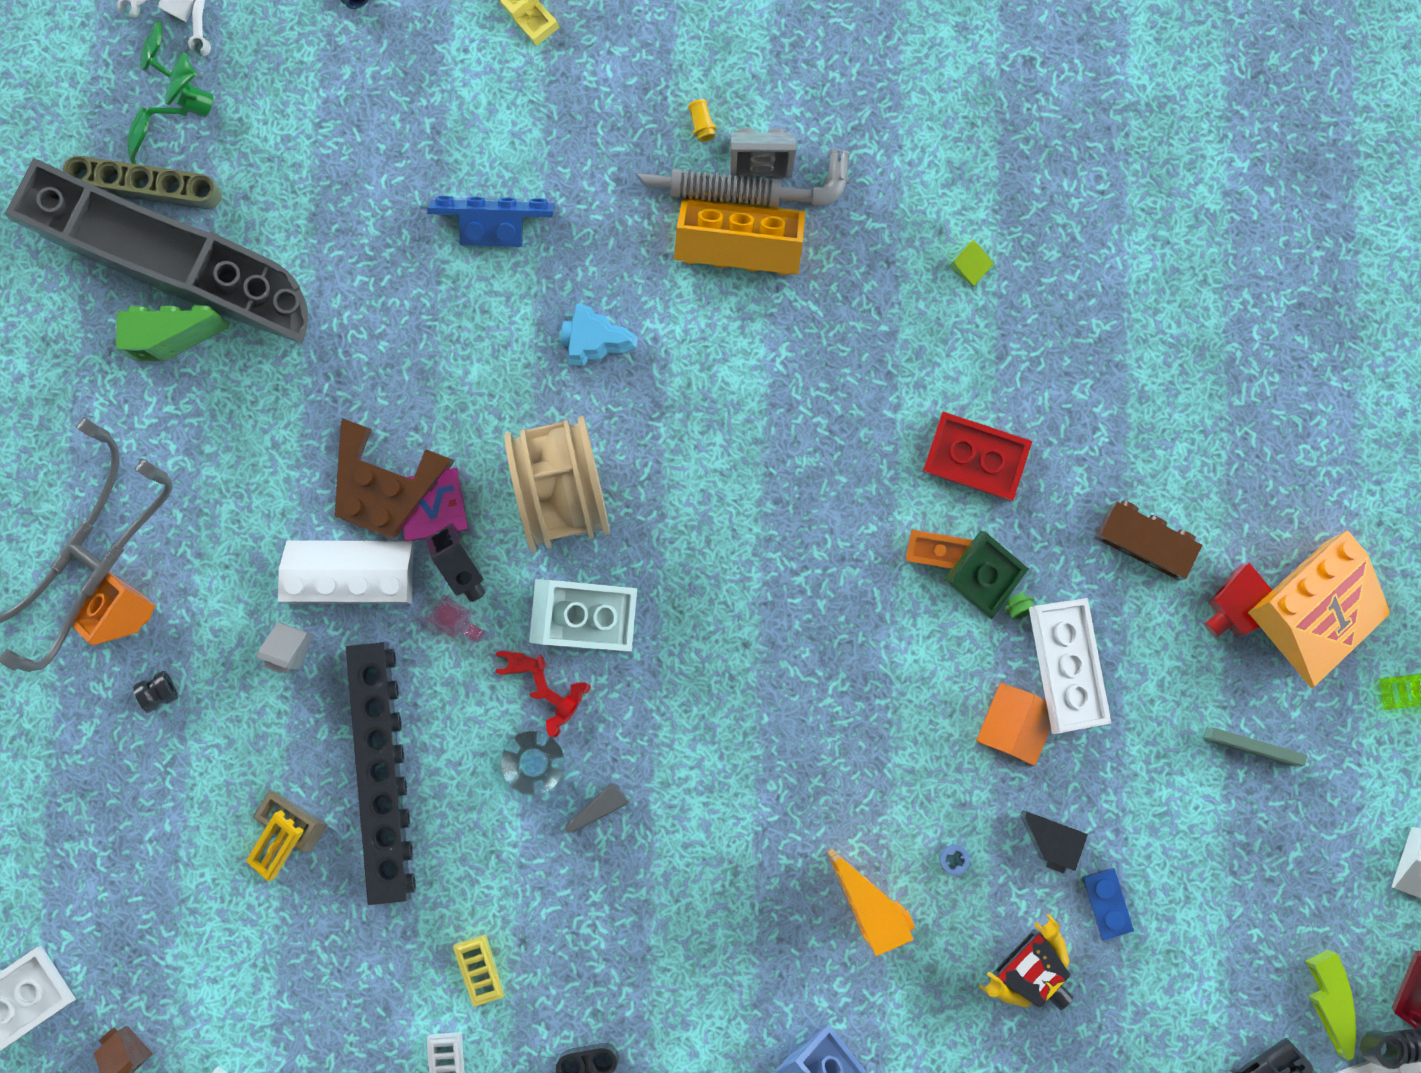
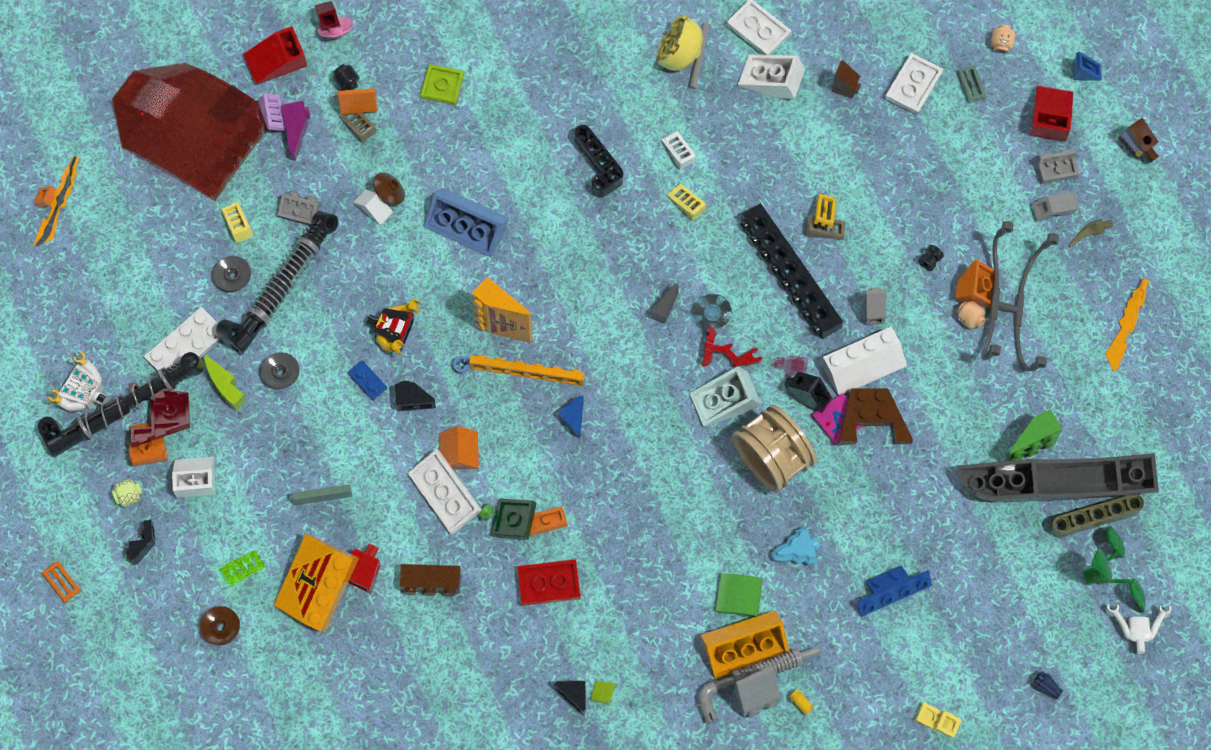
camera: 155 degrees right, 15 degrees down
(147, 570) = (971, 314): none -> light nougat head
(712, 310) = (739, 595): none -> bright green slope
(824, 694) = (572, 415): none -> blue slope
(870, 810) = (533, 371): none -> light orange plate
(1016, 278) = (574, 693): none -> black slope
(1254, 983) = (278, 362): none -> dark grey dish

